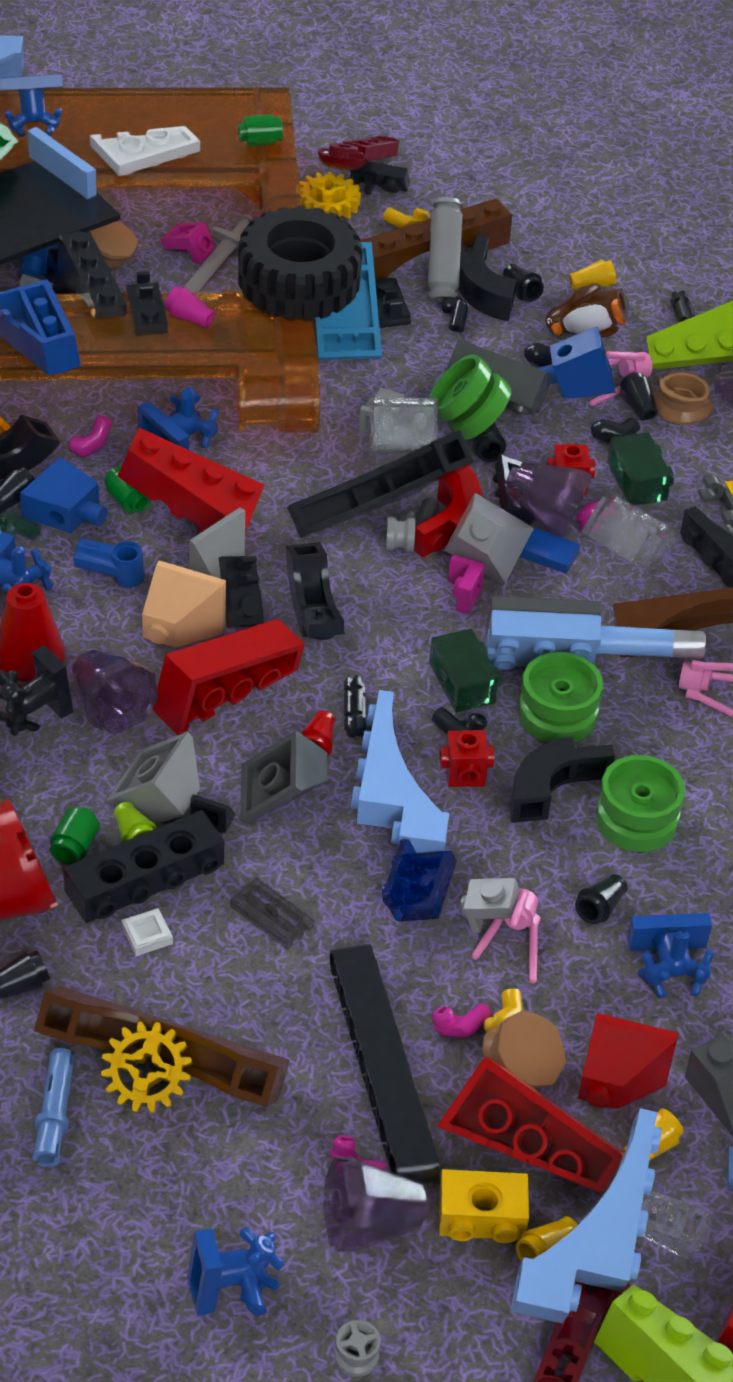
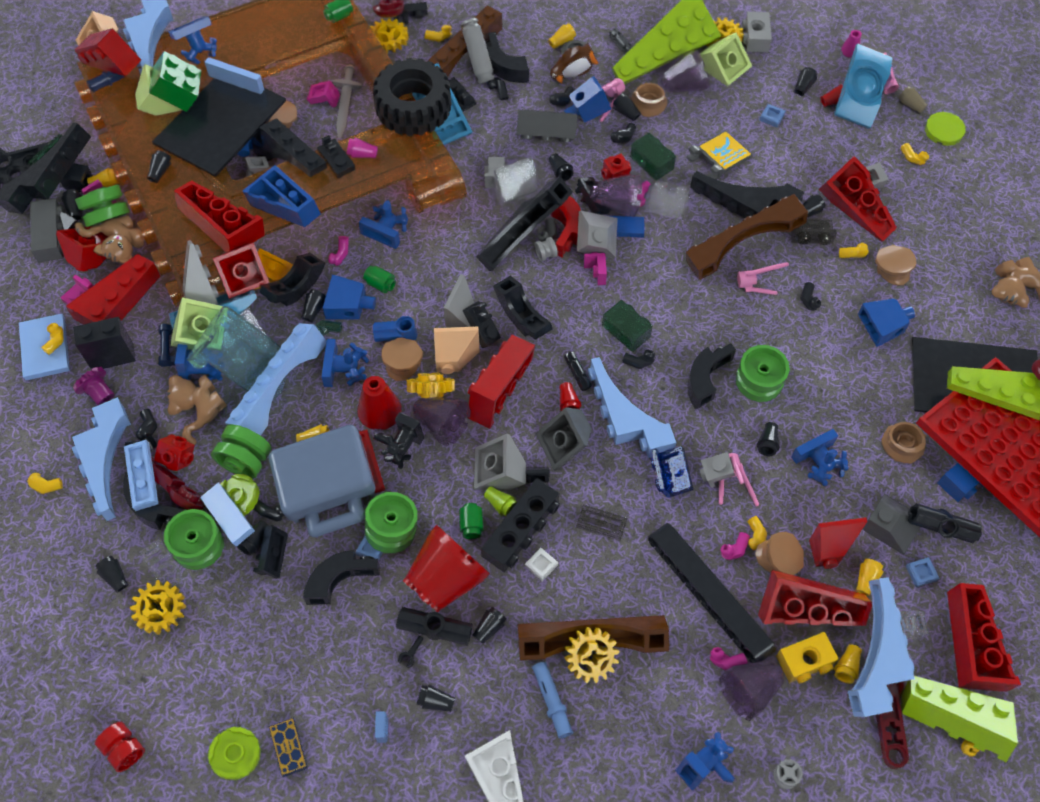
camera: 20 degrees left, 15 degrees up
(98, 598) = (401, 358): none -> medium nougat hat
(117, 638) = (430, 385): none -> yellow gear
(133, 153) = (276, 48): white wing -> none
(187, 481) = (418, 265): red wedge -> none
(466, 758) = (657, 381): red brick -> none
(470, 396) = (543, 144): bright green wheel -> none
(528, 284) = (531, 53): black cone -> none
(532, 627) = (677, 282): light blue piece -> none
(560, 697) = (687, 323): bright green wheel -> none

